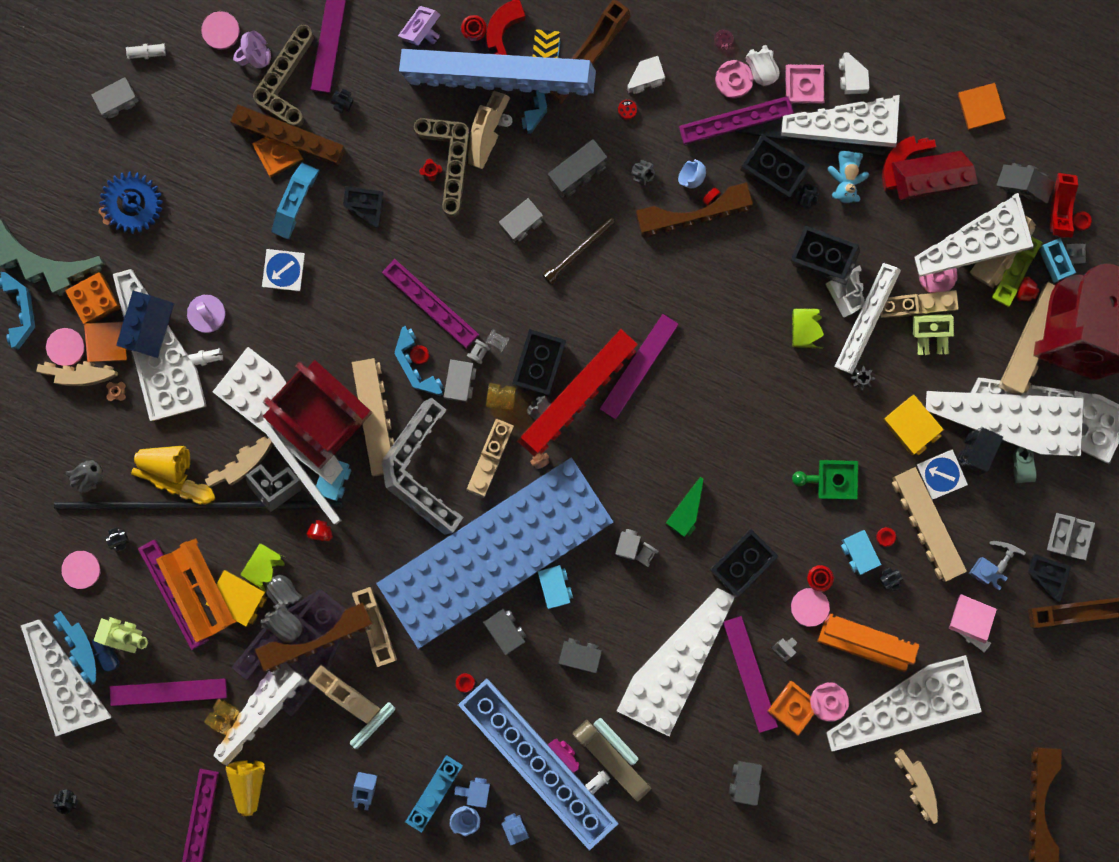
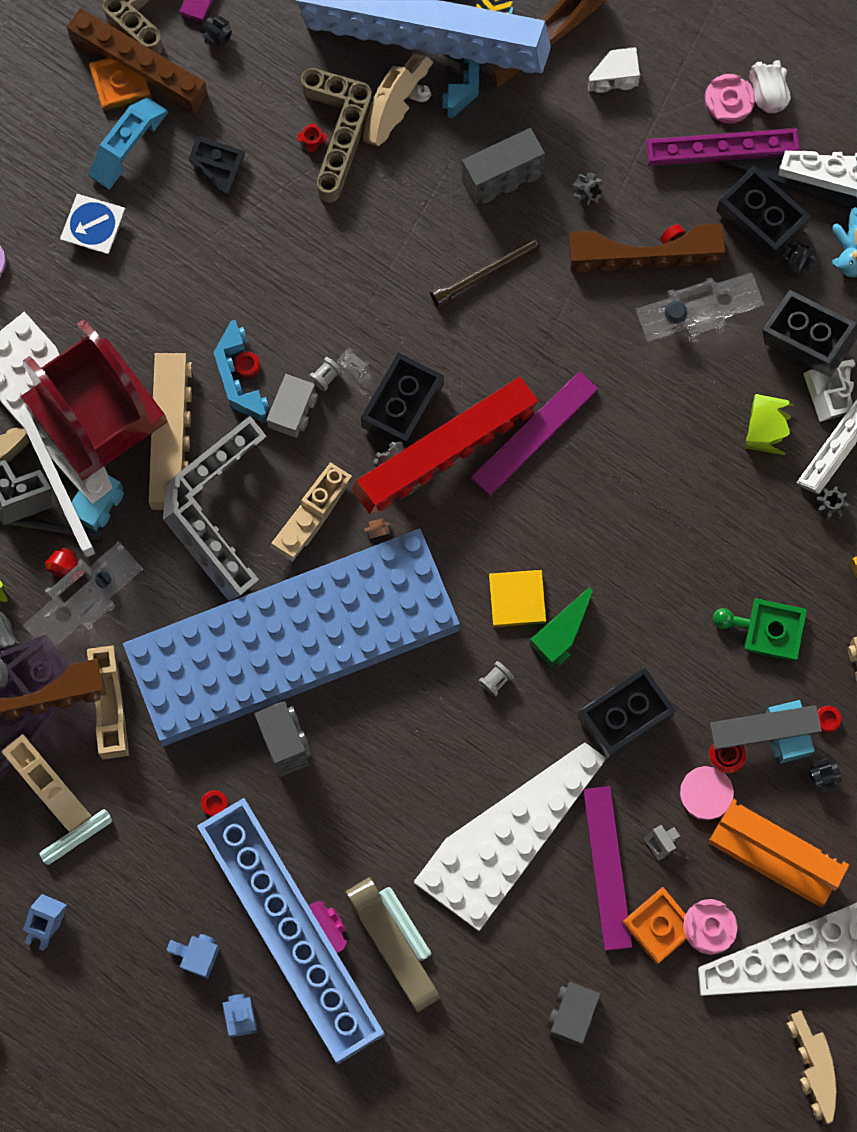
camera: 10 degrees right, 10 degrees down
(344, 556) = (91, 601): none -> clear piece
(430, 303) = (275, 303): magenta tile -> none
(434, 793) = (140, 944): dark azure slope -> none
(465, 820) = (173, 990): light blue hair -> none
(501, 397) = (348, 443): clear yellow wheel -> none
(521, 220) = (416, 219): light grey brick -> none
(554, 586) = (362, 697): medium azure brick -> none
(580, 656) = (378, 796): dark grey brick -> none
(598, 781) = (369, 972): white pin -> none
(627, 109) = (583, 110): red tile -> none
(628, 544) = (473, 658): light grey brick -> none
(650, 491) = (517, 598): none -> yellow tile
(692, 174) = (653, 203): light blue hair -> none
(723, 39) = (725, 48): clear pink tile -> none
(745, 254) = (701, 315): none -> clear piece
(805, 84) = (821, 120): bright pink tile -> none
(843, 555) = (765, 727): none -> dark grey tile

